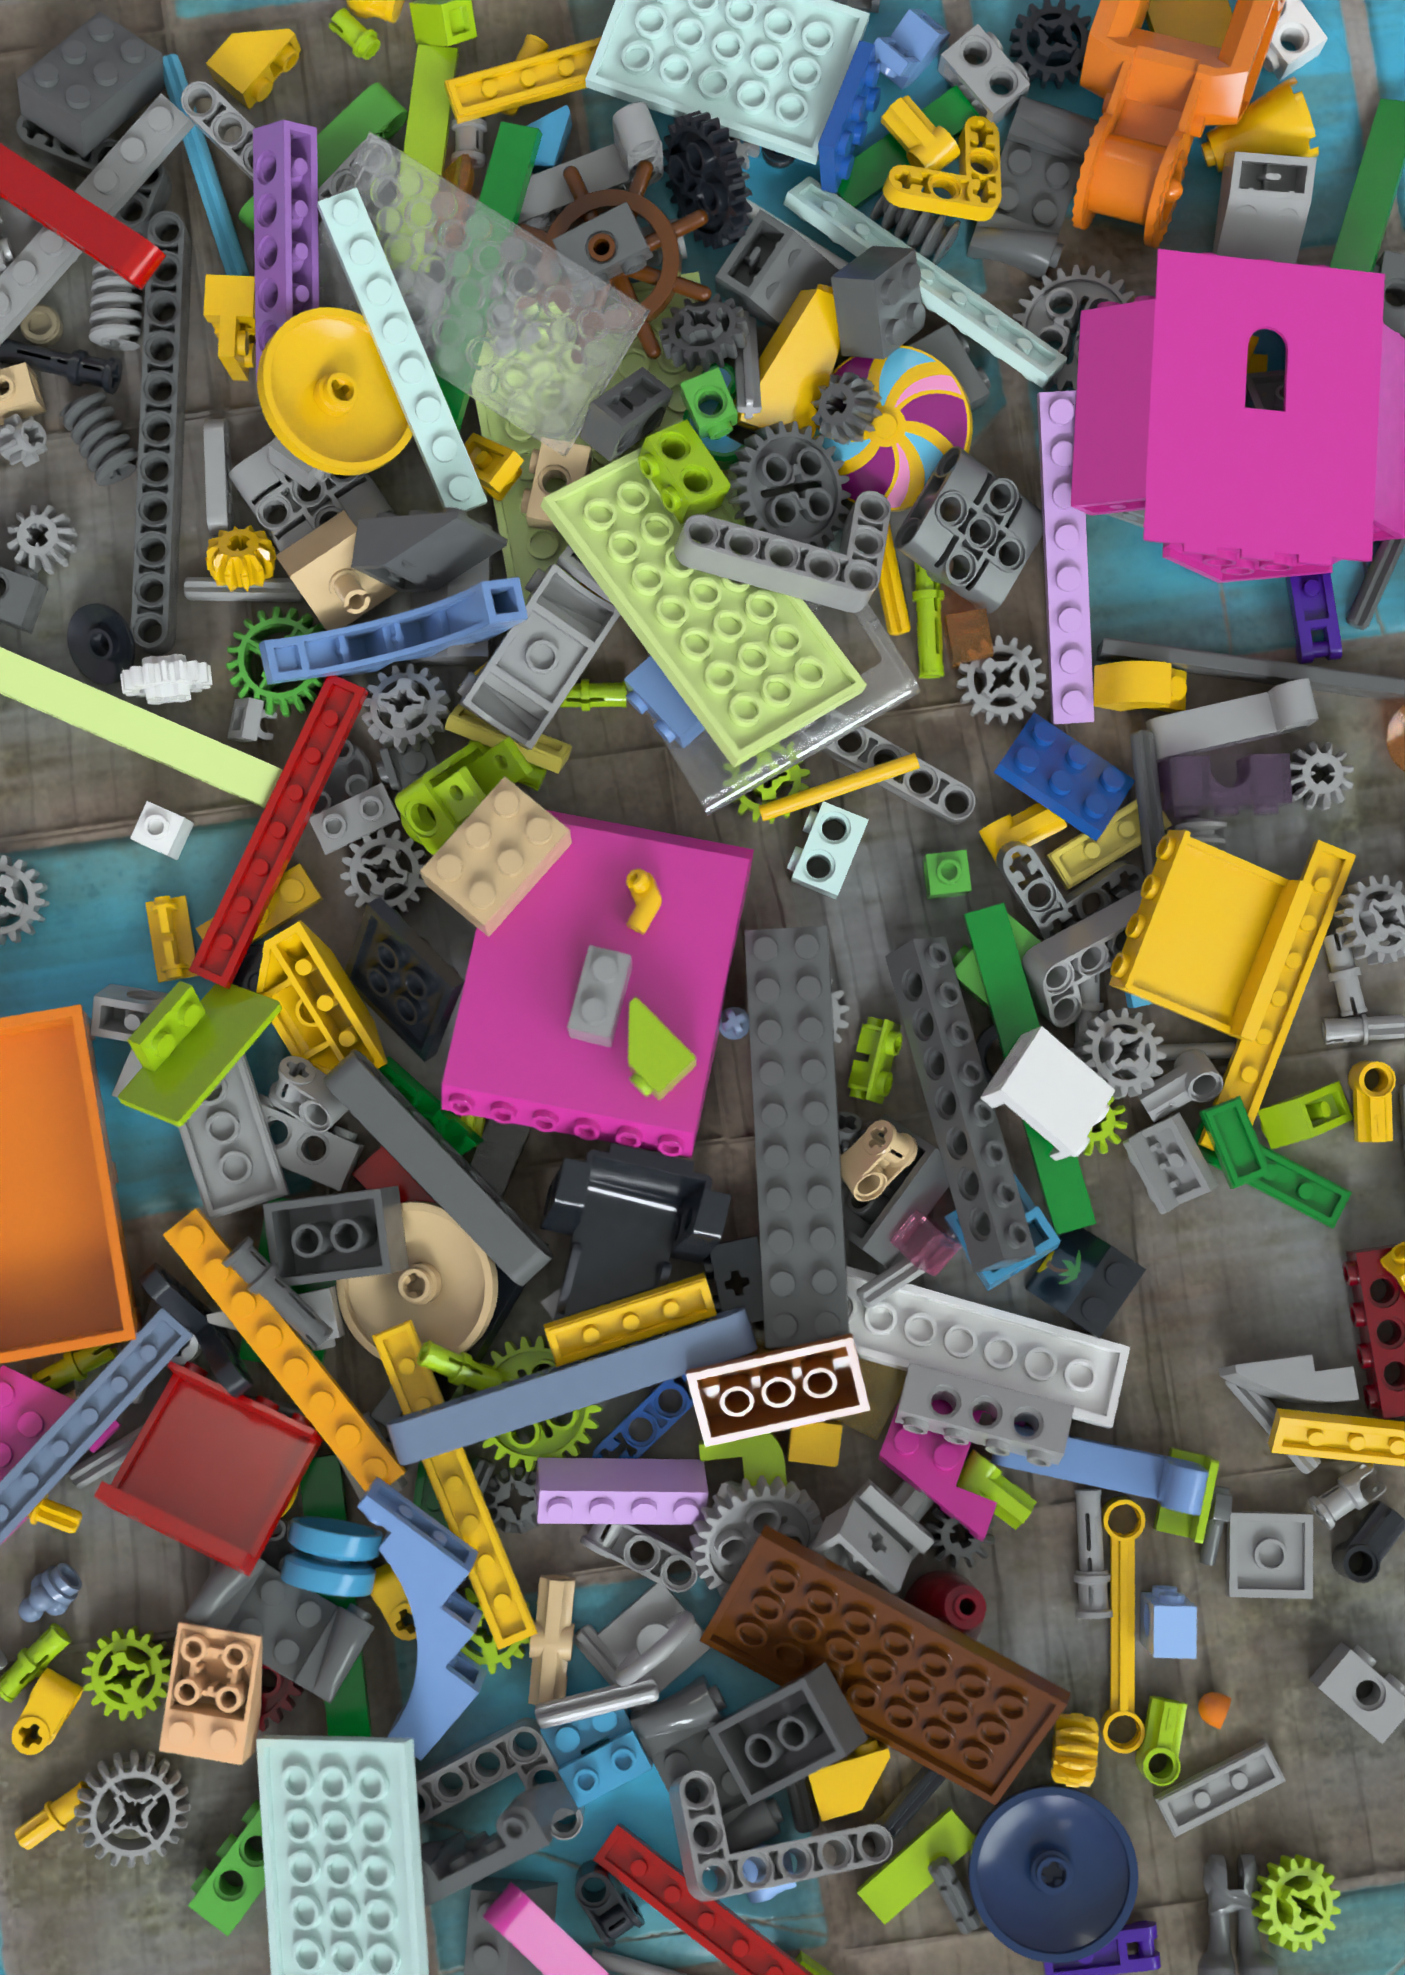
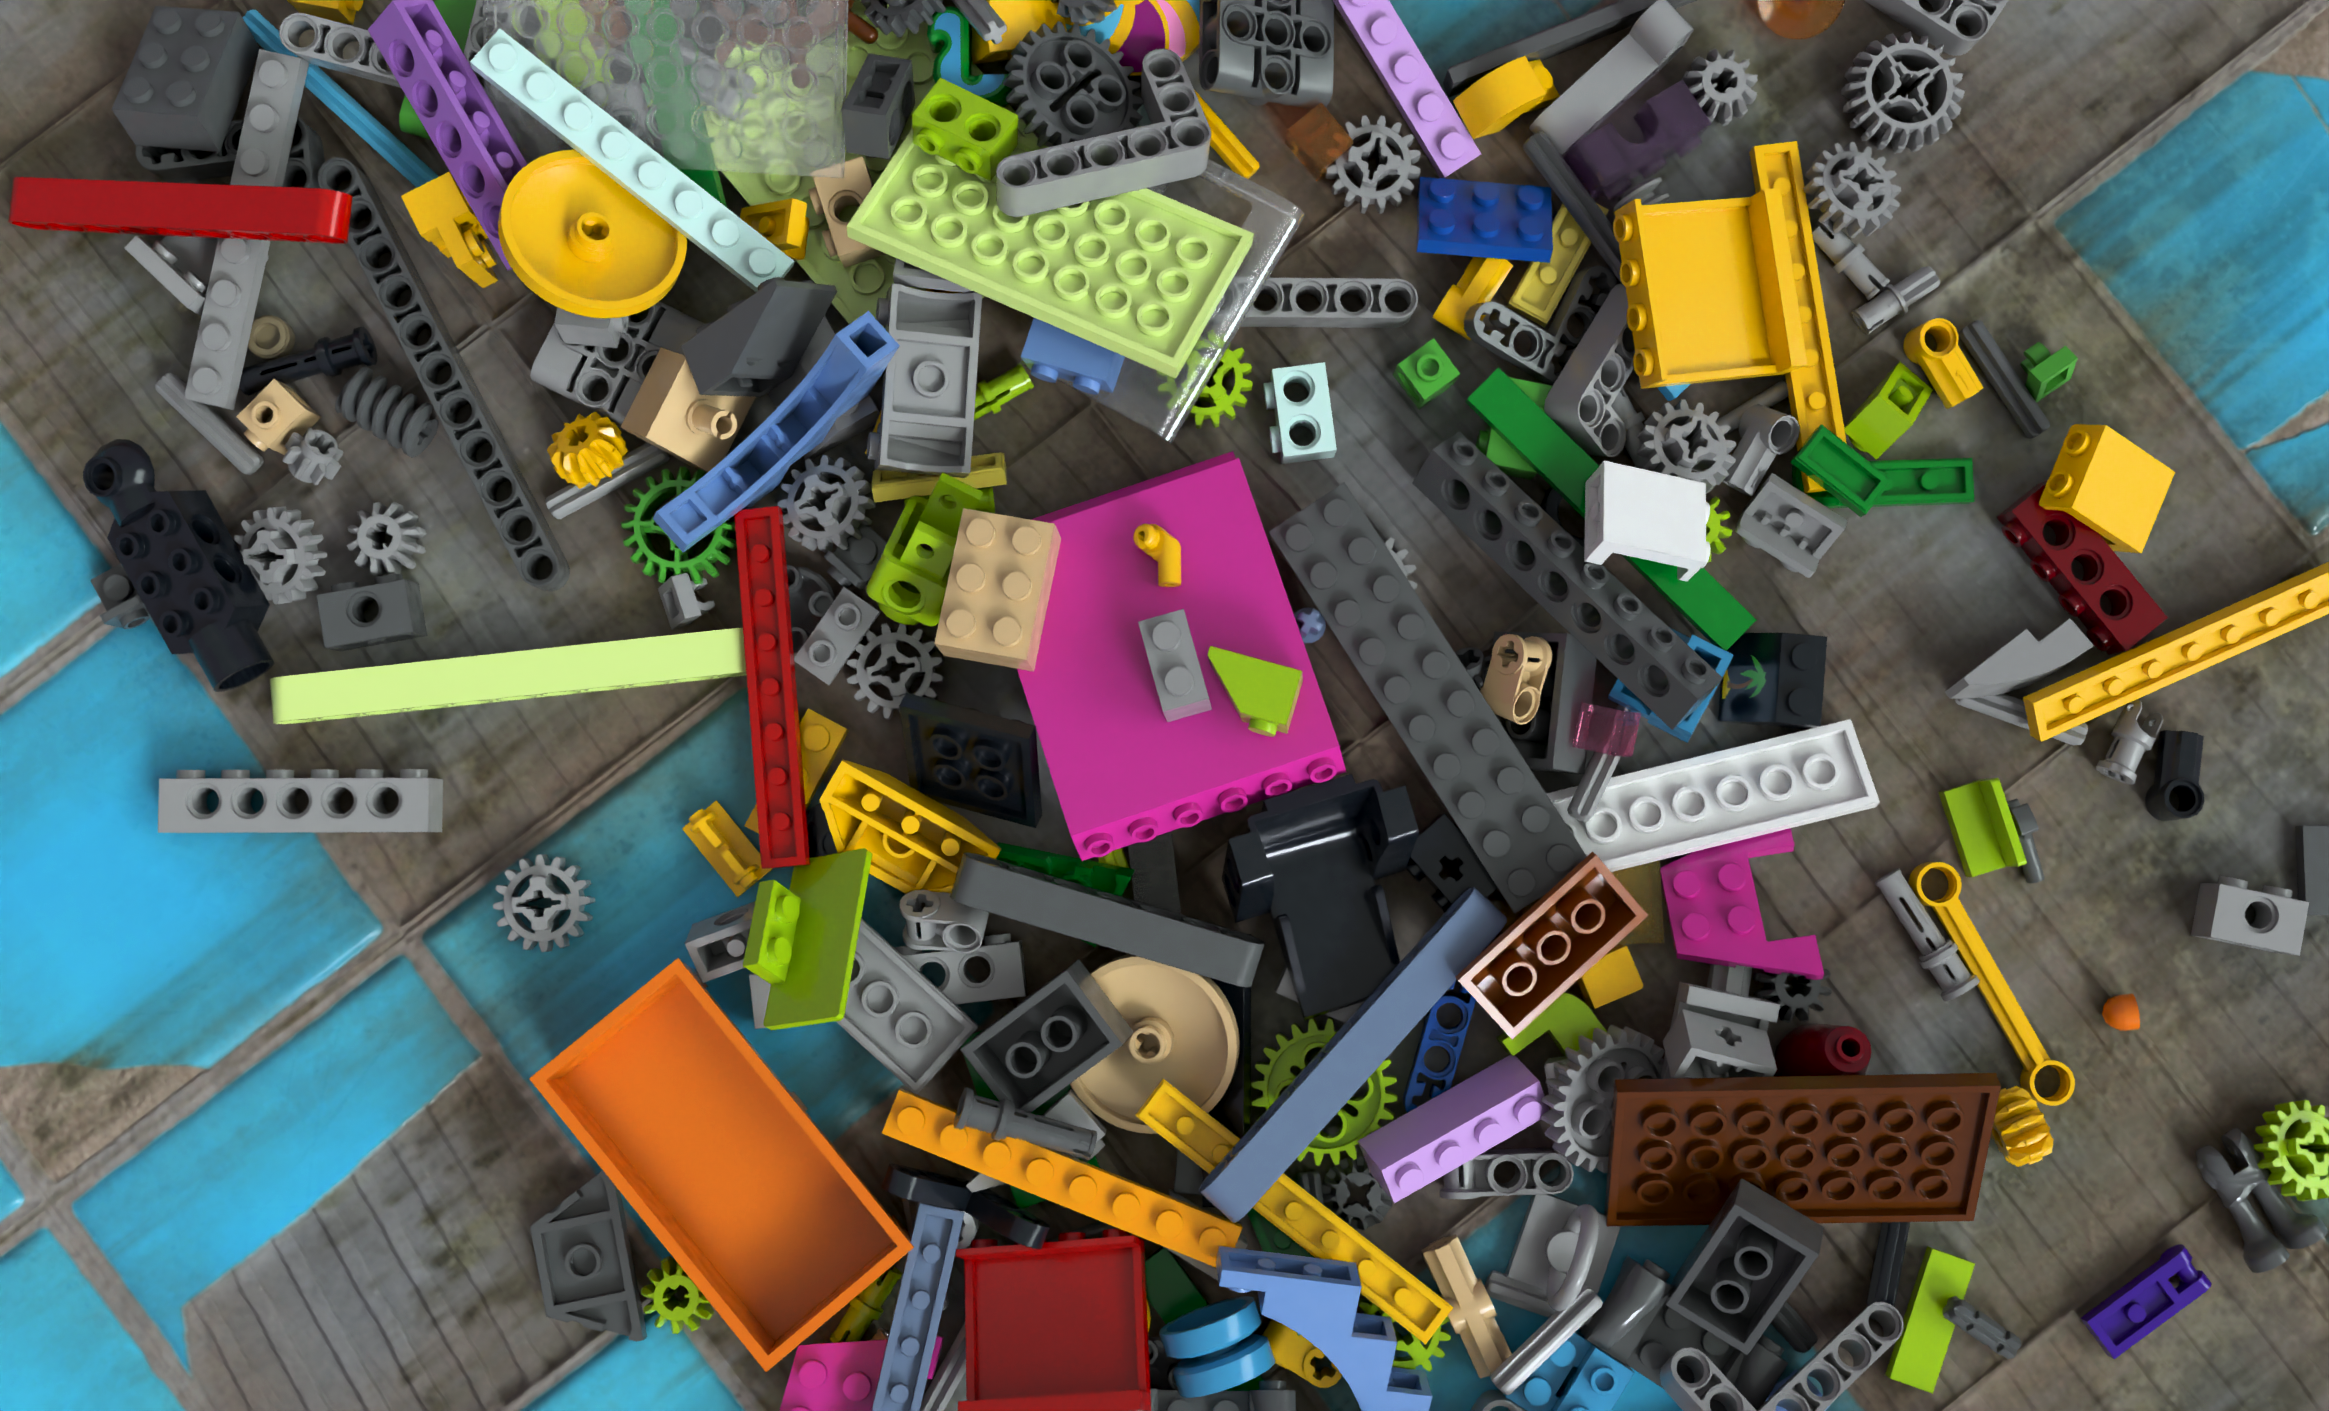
camera: 30 degrees left, 0 degrees up
(100, 643) = (490, 616): black dish -> none
(113, 311) = (330, 283): light grey piece -> none
(162, 830) = (659, 750): white brick -> none
(166, 679) = (581, 603): white gear -> none
(217, 481) = (519, 384): light grey beam -> none
(385, 1171) = (1056, 953): red tile -> none
(458, 1367) = (1234, 1099): lime pin -> none
(630, 1320) = (1372, 960): yellow tile -> none
(709, 387) = (950, 33): bright green brick -> none
(839, 786) = (1280, 346): yellow bar -> none
(849, 1781) = (1829, 1279): yellow slope -> none
(873, 1078) = (1465, 601): lime hinge -> none
(929, 625) = (1261, 128): lime pin -> none
(986, 1480) = (1788, 921): lime piece -> none
(1006, 1406) = (1817, 828): light grey brick -> none
(1053, 1873) = (2064, 1254): dark blue dish -> none
(1162, 1735) = (2090, 1064): lime piece -> none
(1168, 1623) = (2037, 957): light blue brick -> none
(1170, 1480) = (1964, 821): medium blue beam -> none
(1219, 1788) = (2168, 1084): light grey tile -> none
(1269, 1554) = (2091, 839): light grey plate -> none

